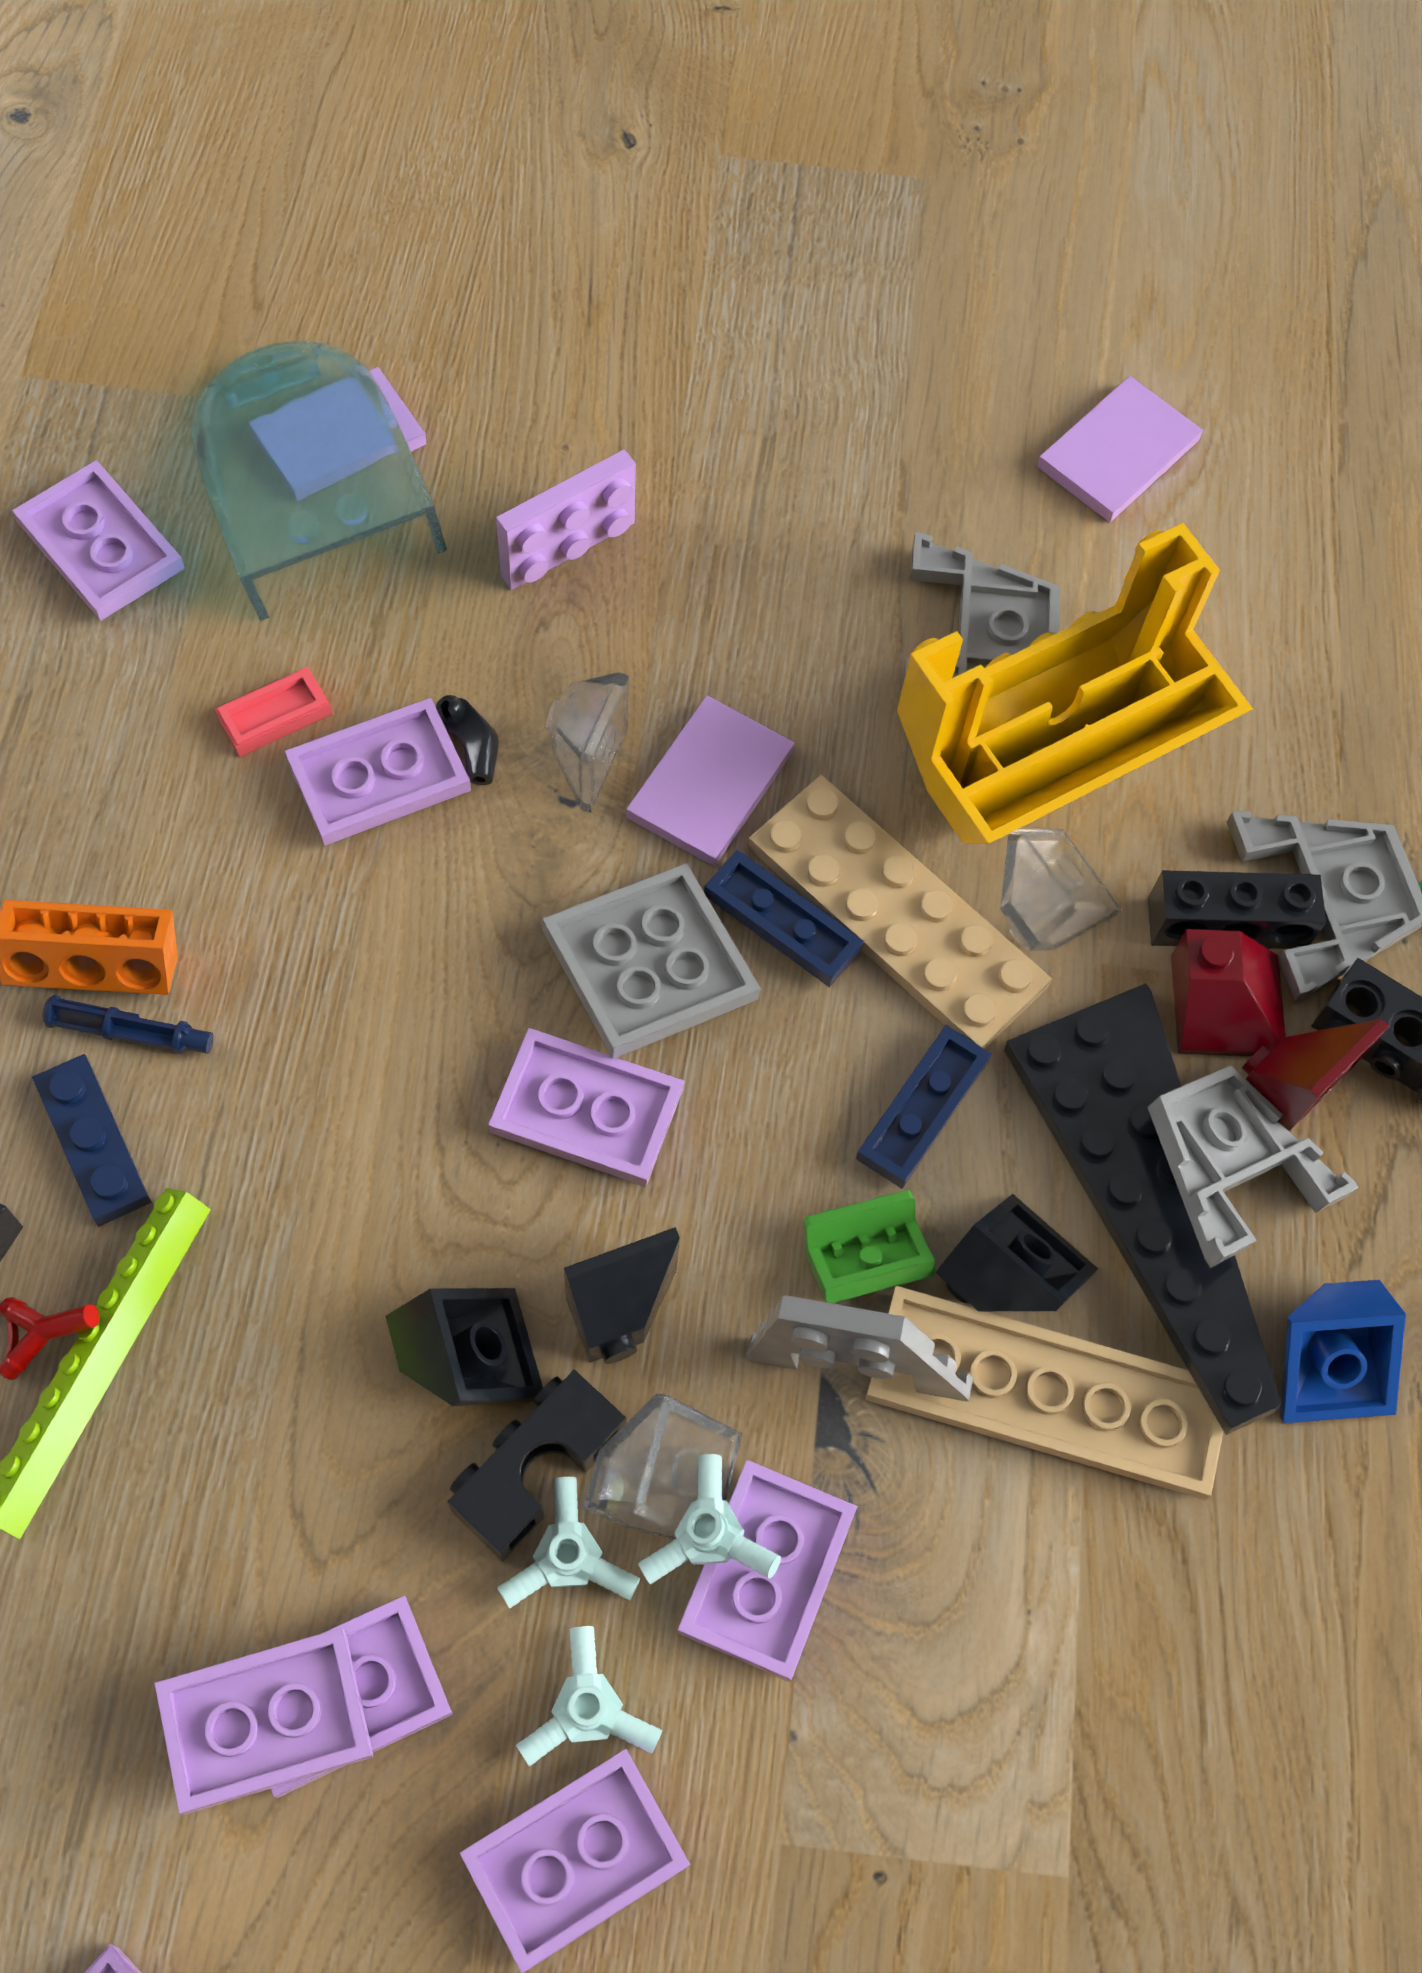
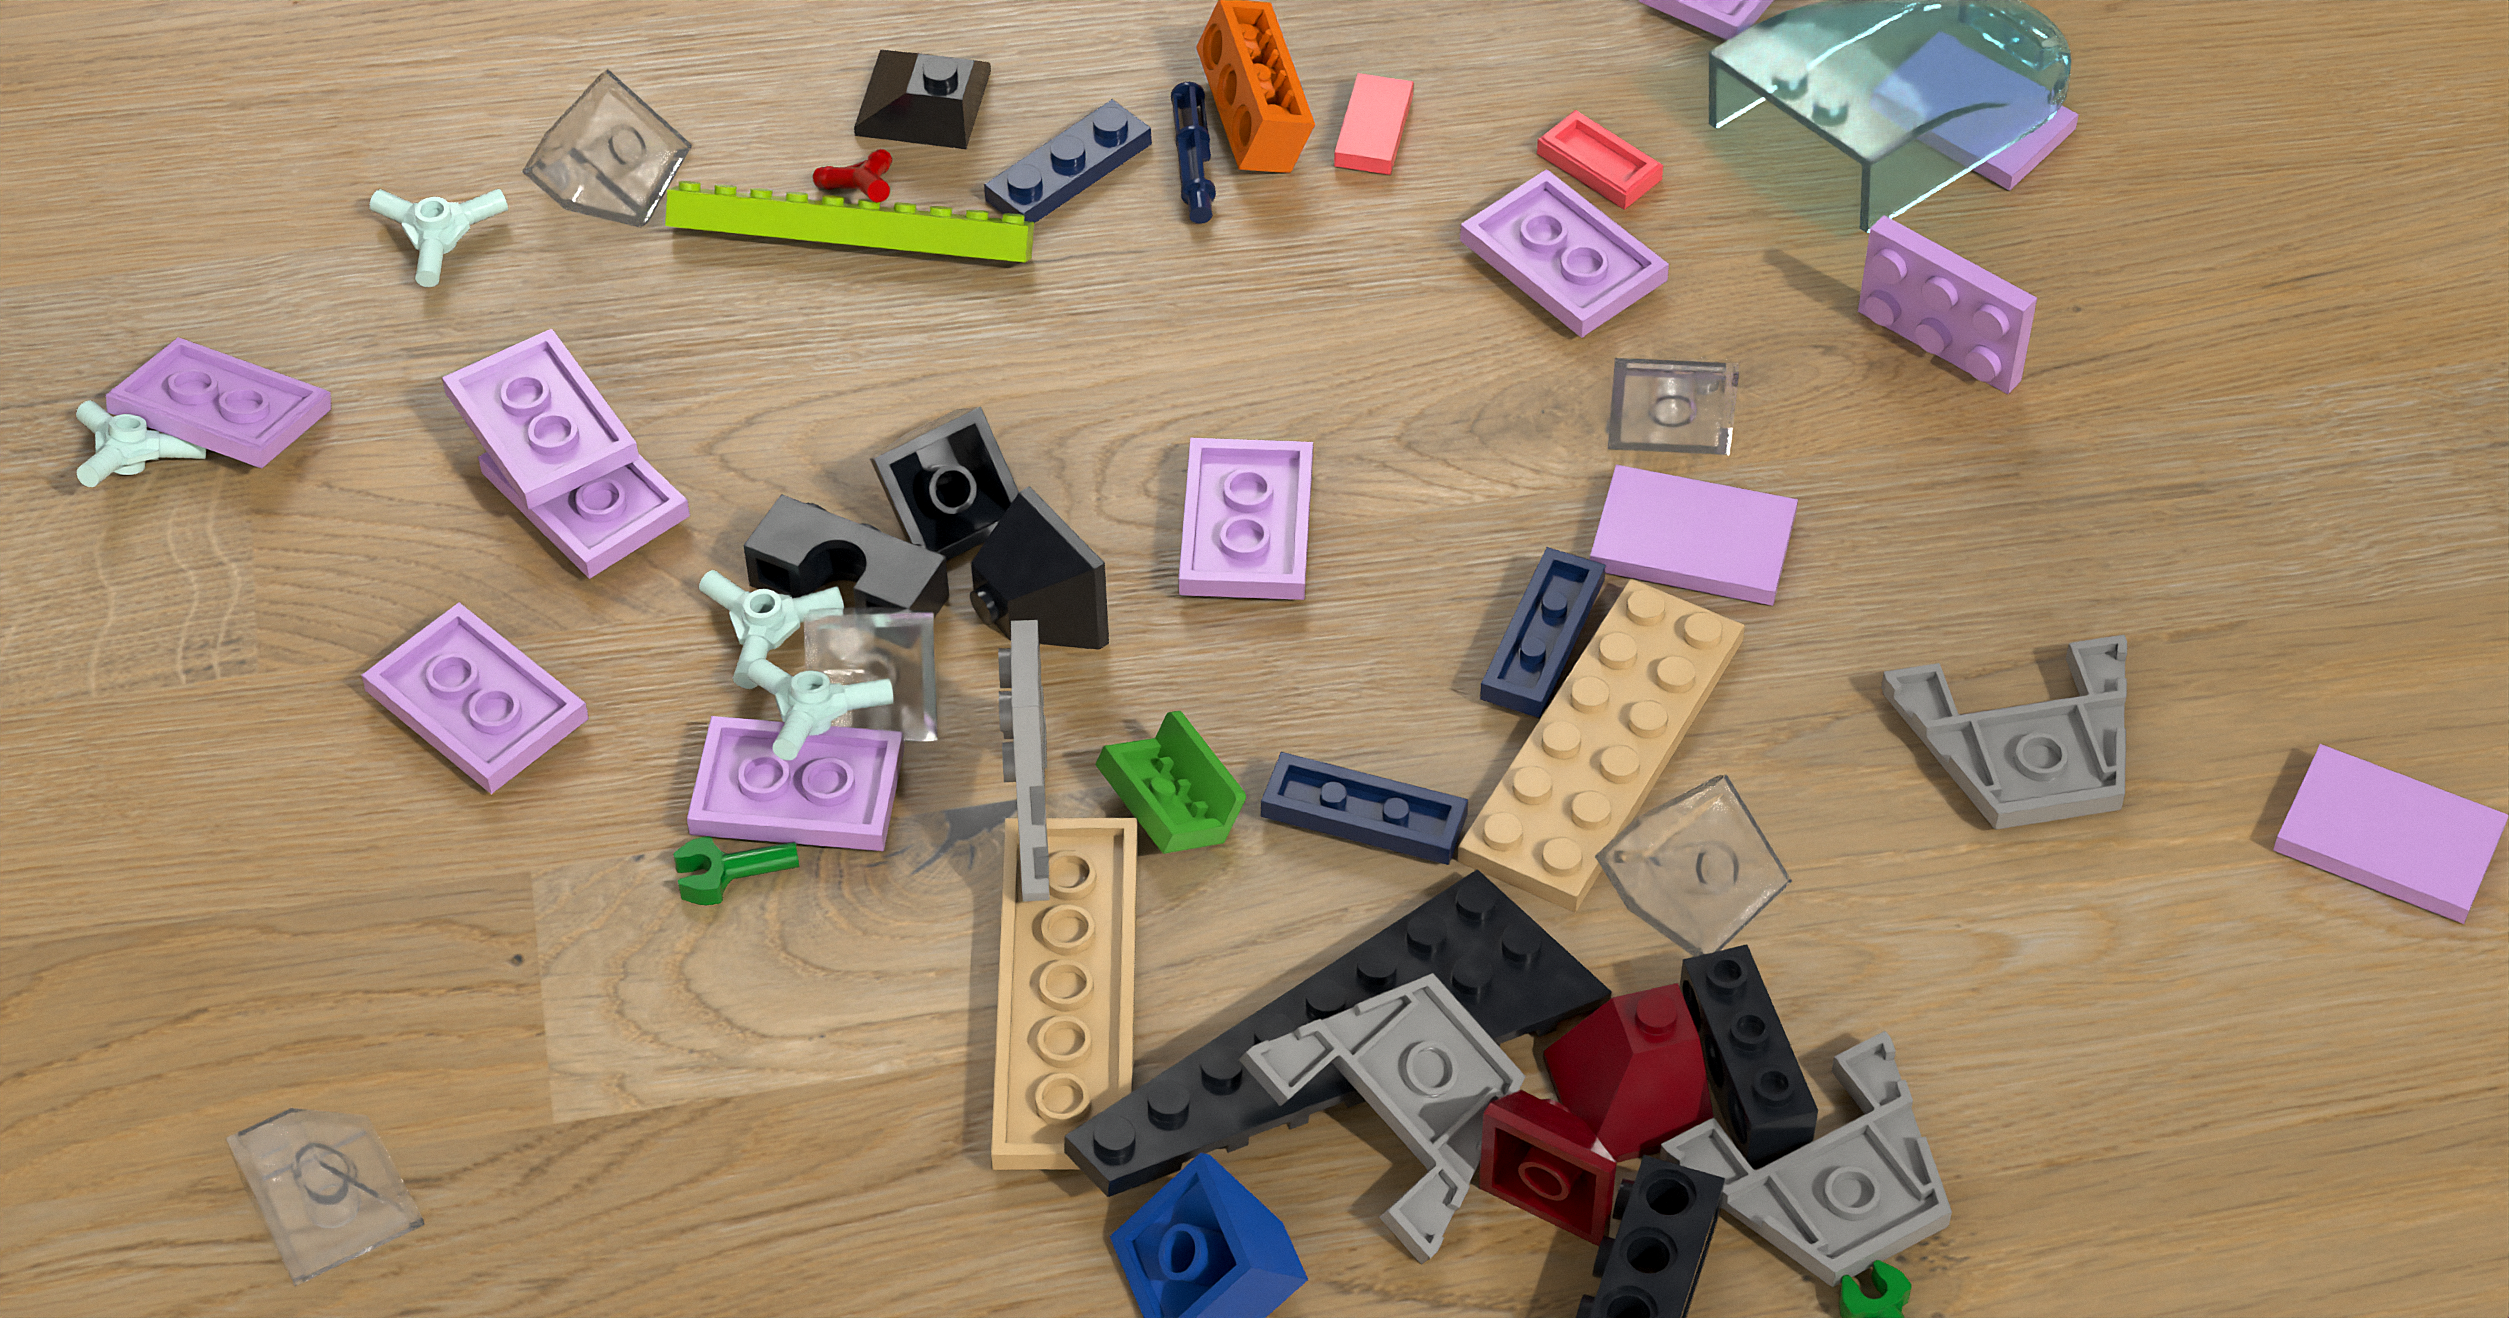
camera: 80 degrees right, 15 degrees down
(155, 869) = (1373, 124): none -> tile
(477, 735) = (1646, 321): black arm -> none
(587, 1708) = (619, 671): light aqua piece -> none
(650, 960) = (1435, 522): light grey plate -> none
(835, 1651) = (724, 867): none -> green bar
(1014, 1263) = (1210, 920): black slope -> none
(1074, 703) = (1910, 783): yellow wedge -> none

